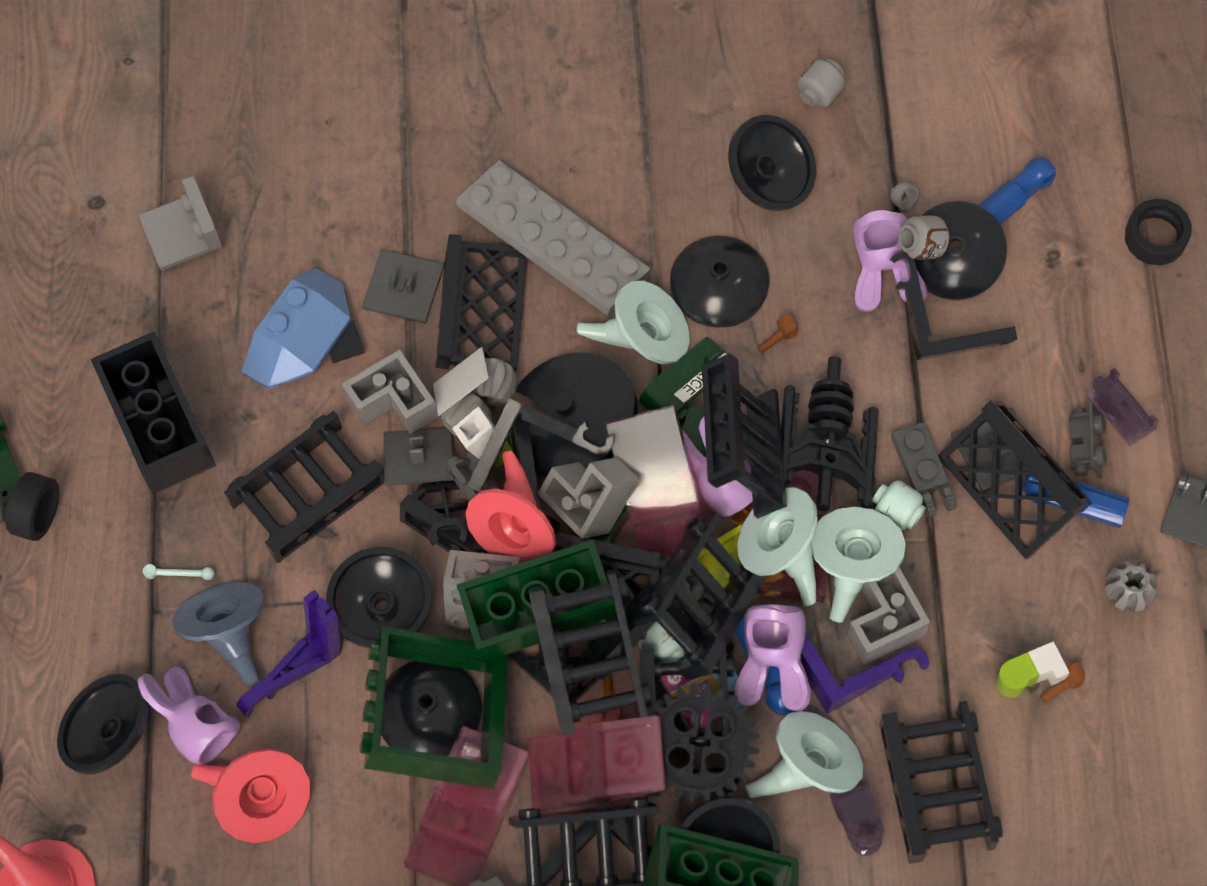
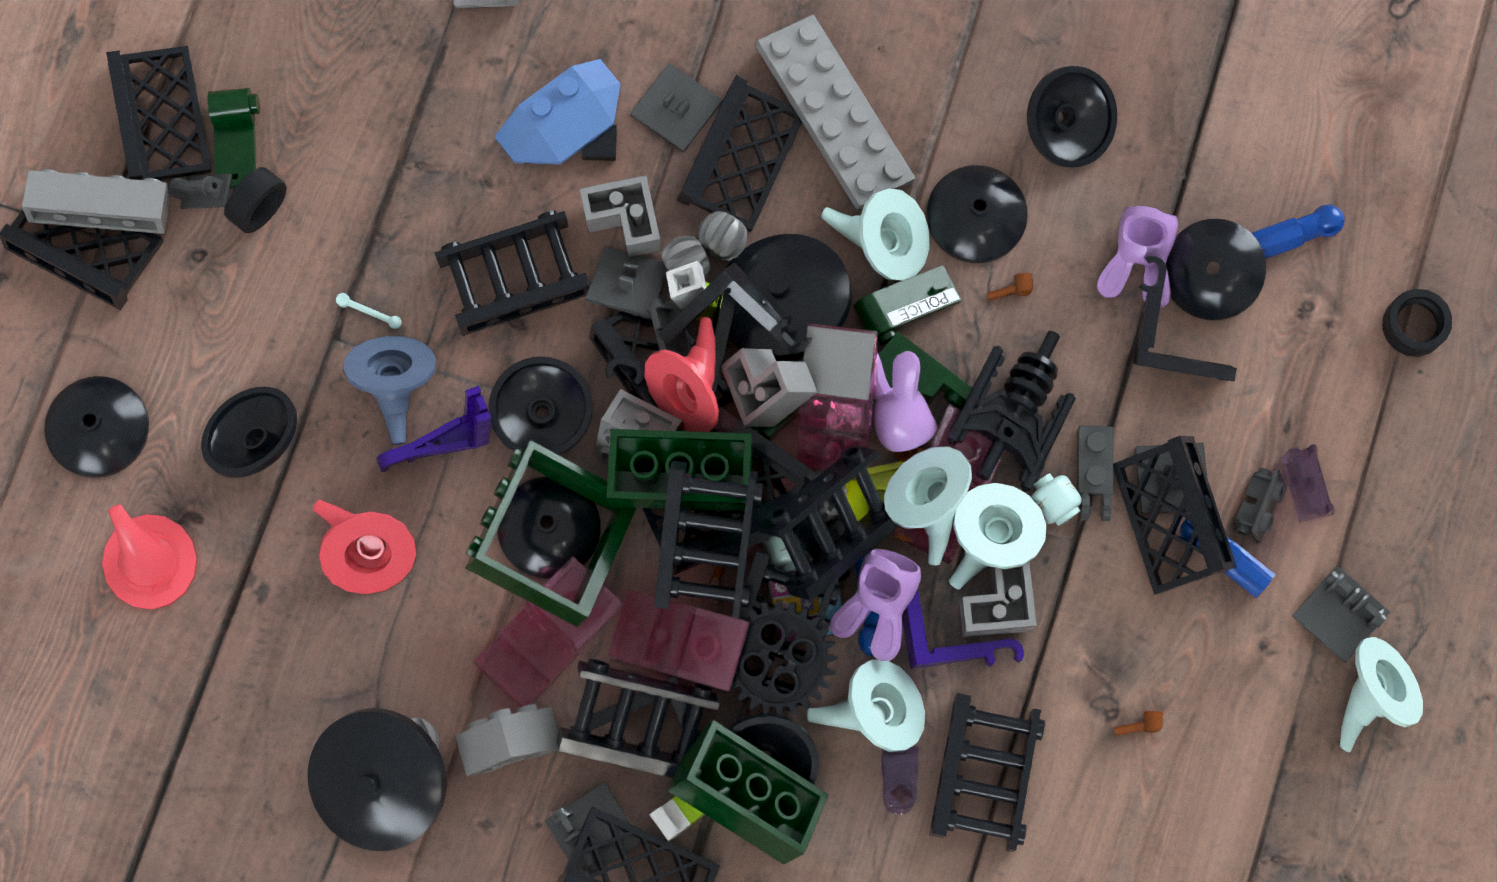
camera: 15 degrees right, 10 degrees up
(153, 413) = (395, 153): black brick -> none
(194, 722) = (331, 461): lavender piece -> none
(460, 381) = (692, 226): white sticker -> none
(724, 436) = (911, 380): black fence -> none
(821, 83) = (1153, 50): light grey head -> none
(909, 191) = (1193, 199): light grey hinge -> none
(924, 237) = (1184, 249): light grey head -> none
(1031, 669) = (1114, 700): leg -> none
(1125, 576) = (1242, 648): light grey piece -> none

